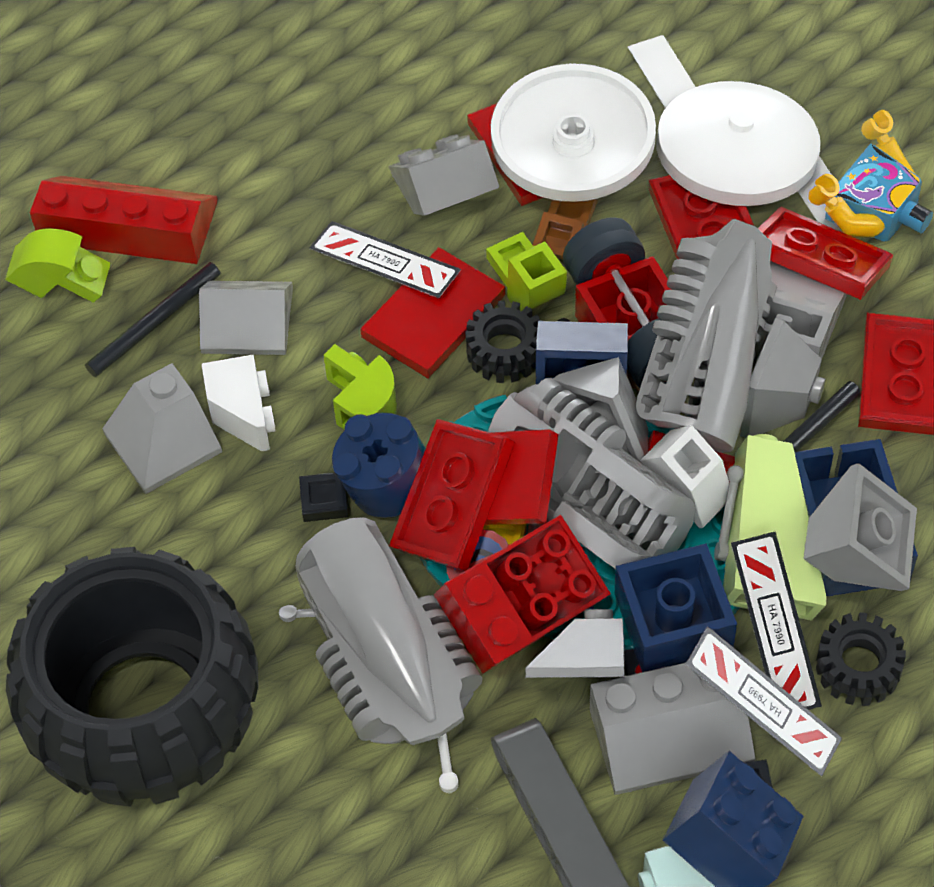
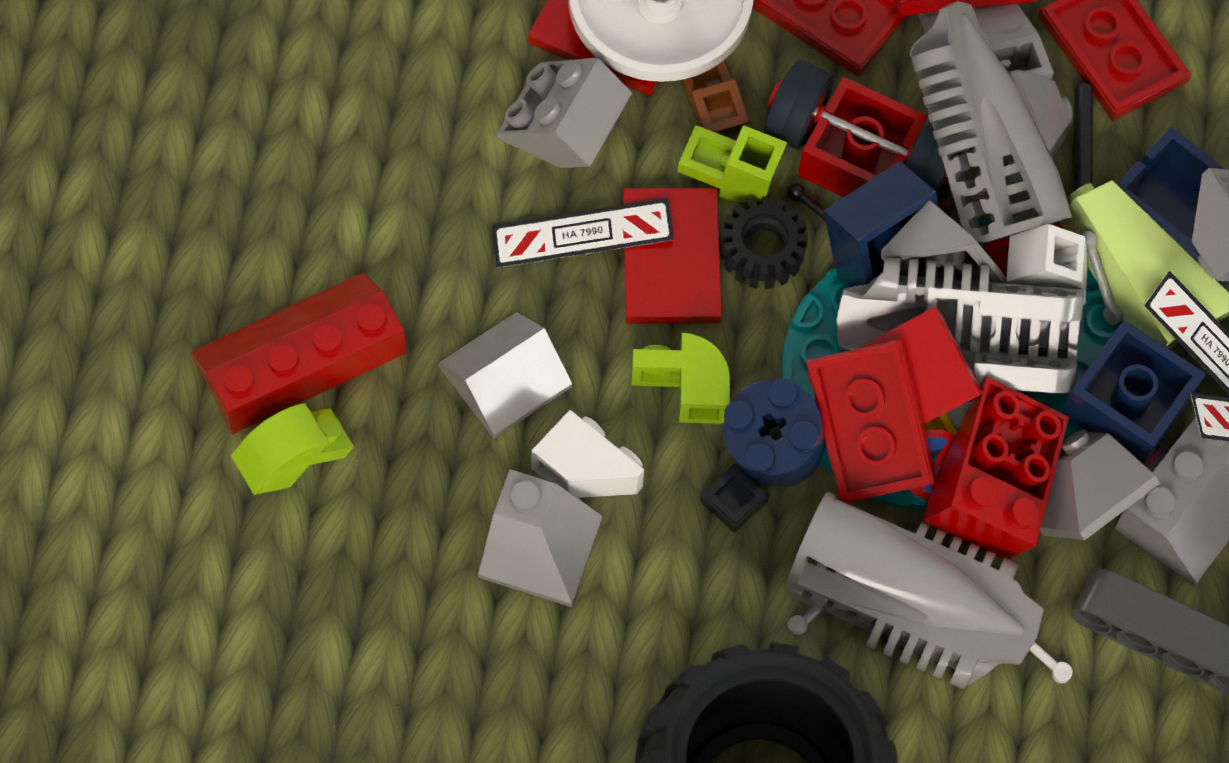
camera: 45 degrees left, 10 degrees up
(151, 320) = (422, 437): black bar -> none

